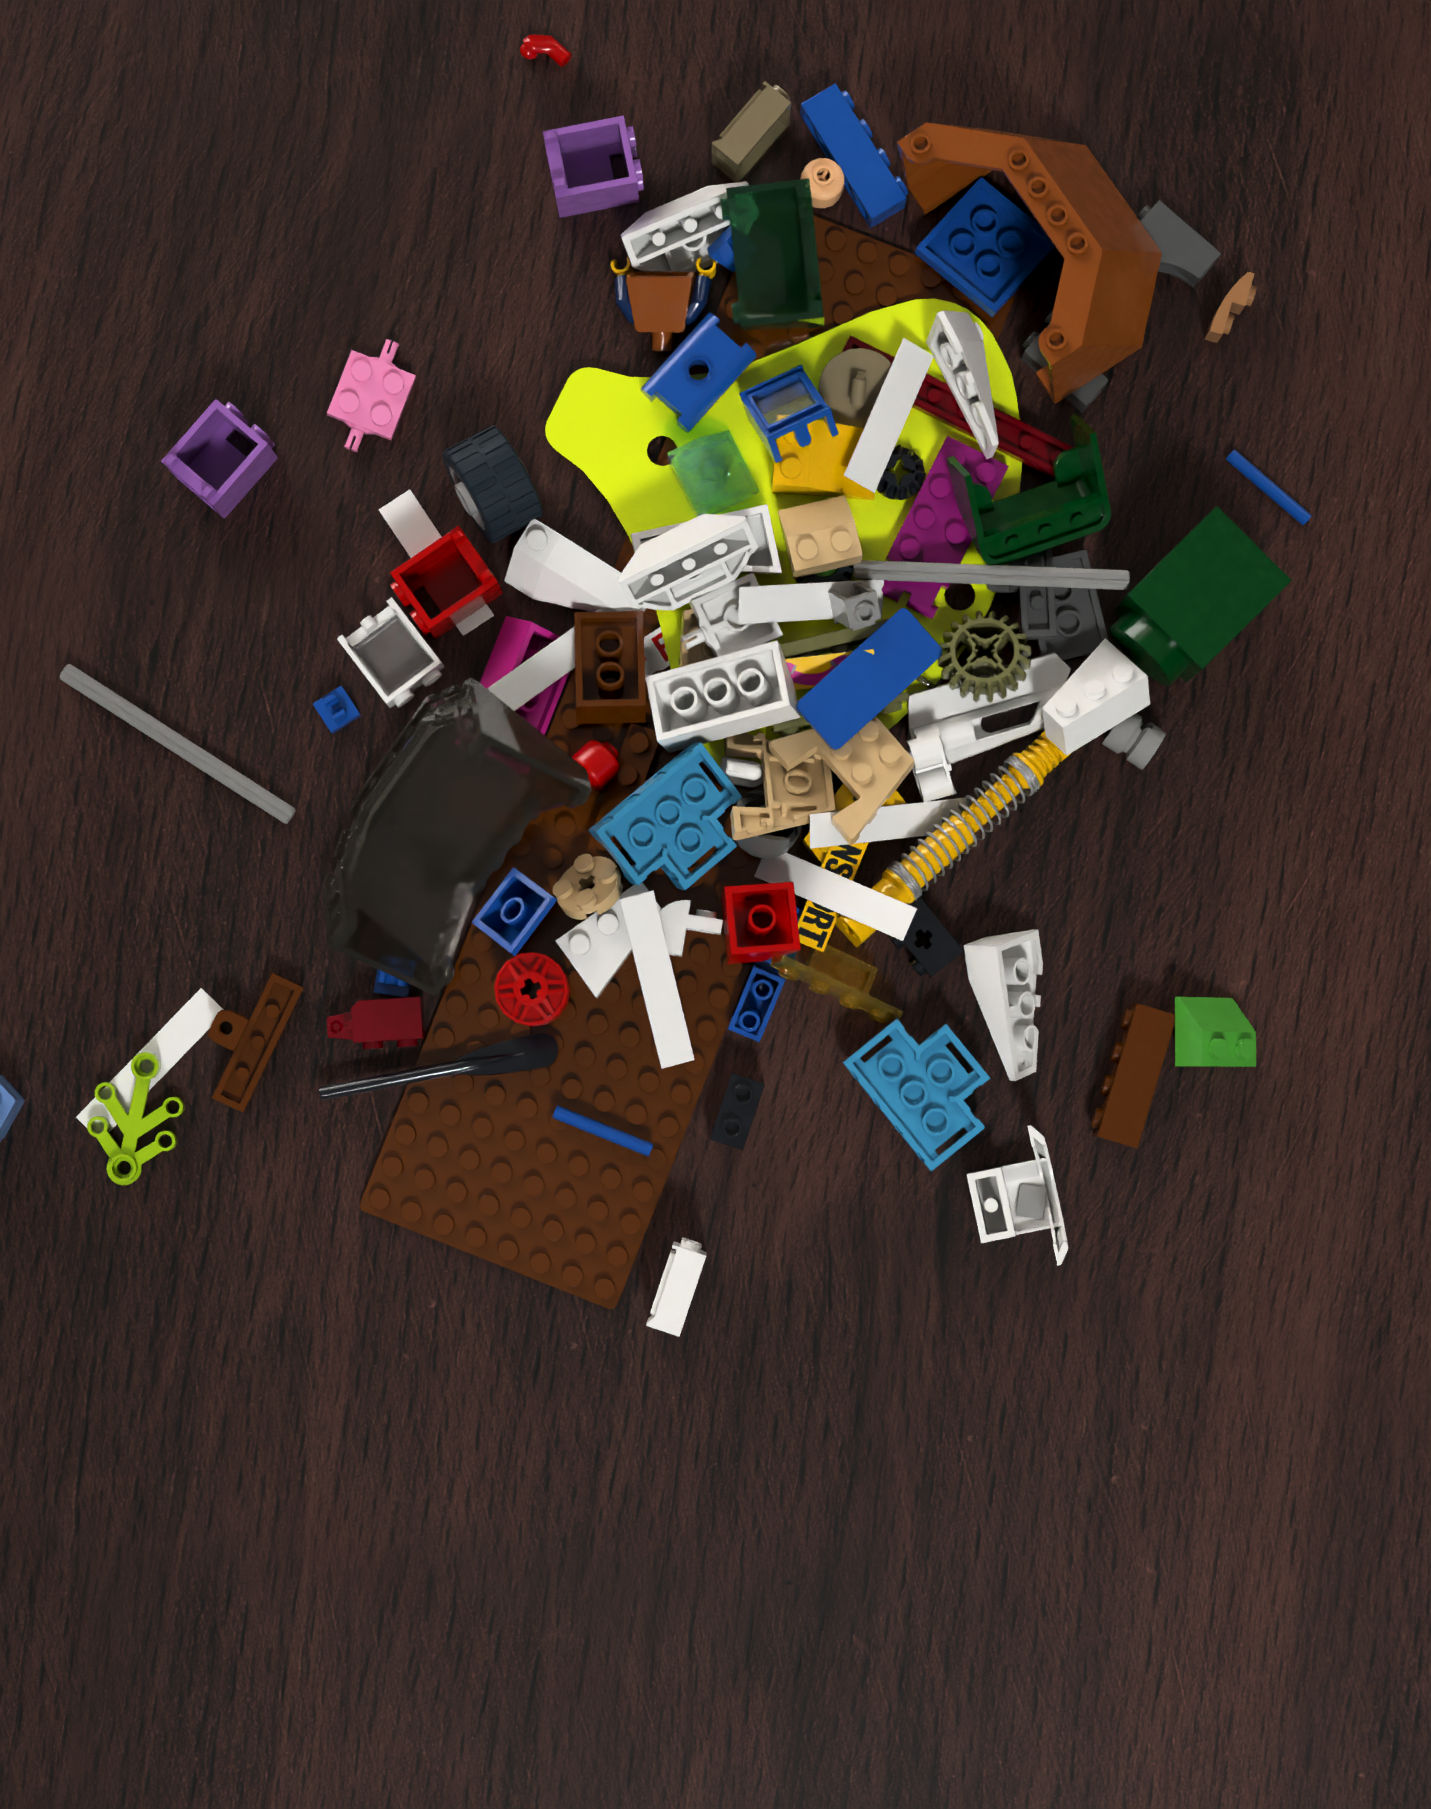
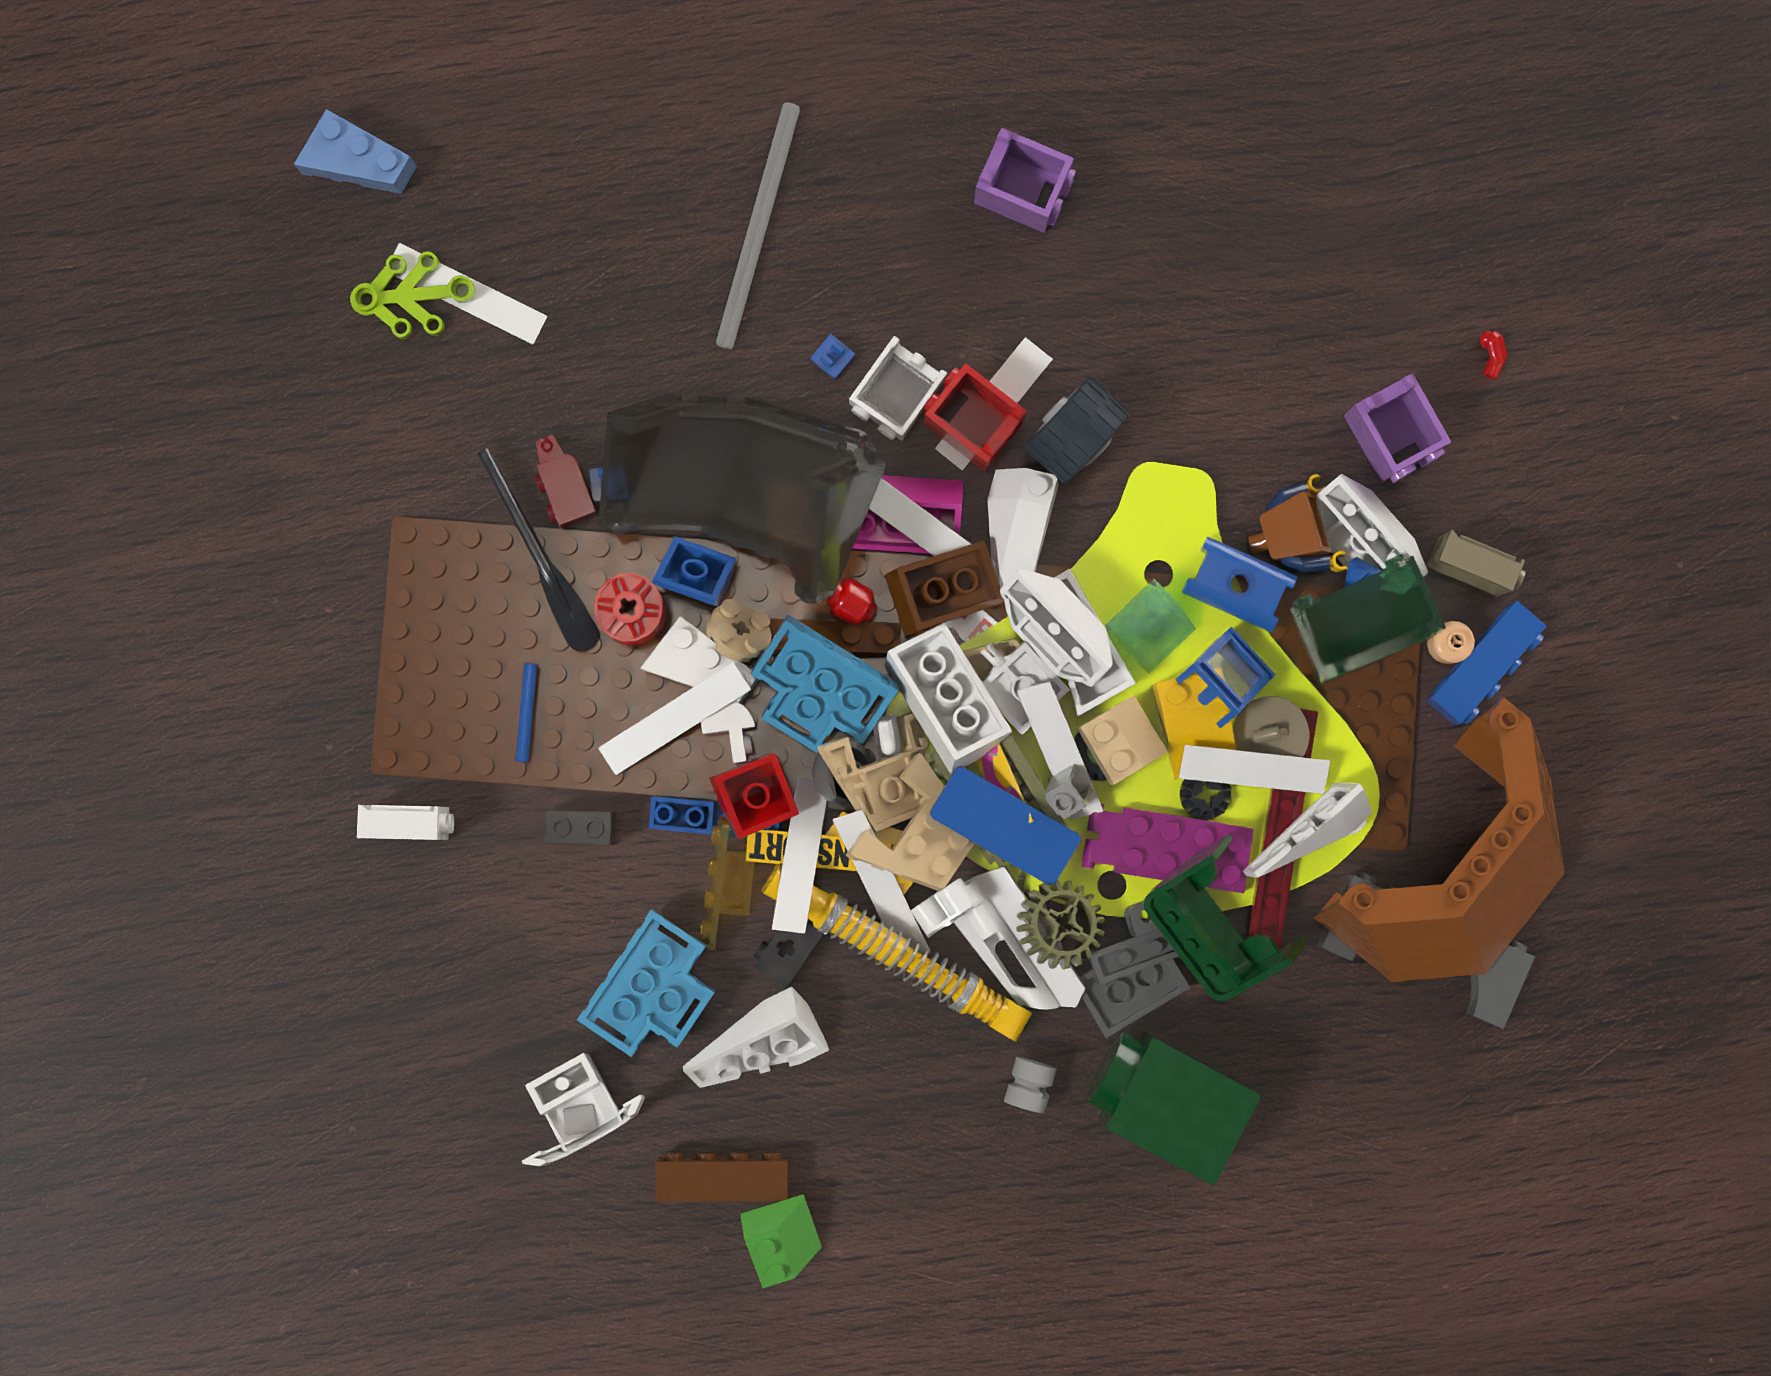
camera: 75 degrees right, 0 degrees up
(252, 1040) = (513, 375): reddish brown plate -> none
(371, 395) = (1126, 297): bright pink plate -> none
(986, 247) = (1439, 809): blue plate -> none
(992, 574) = (1136, 909): light grey axle -> none
(1095, 698) = (1052, 1038): white wedge -> none
(1237, 298) = (1466, 1056): medium nougat slope -> none
(1268, 487) = (1302, 1138): blue bar -> none

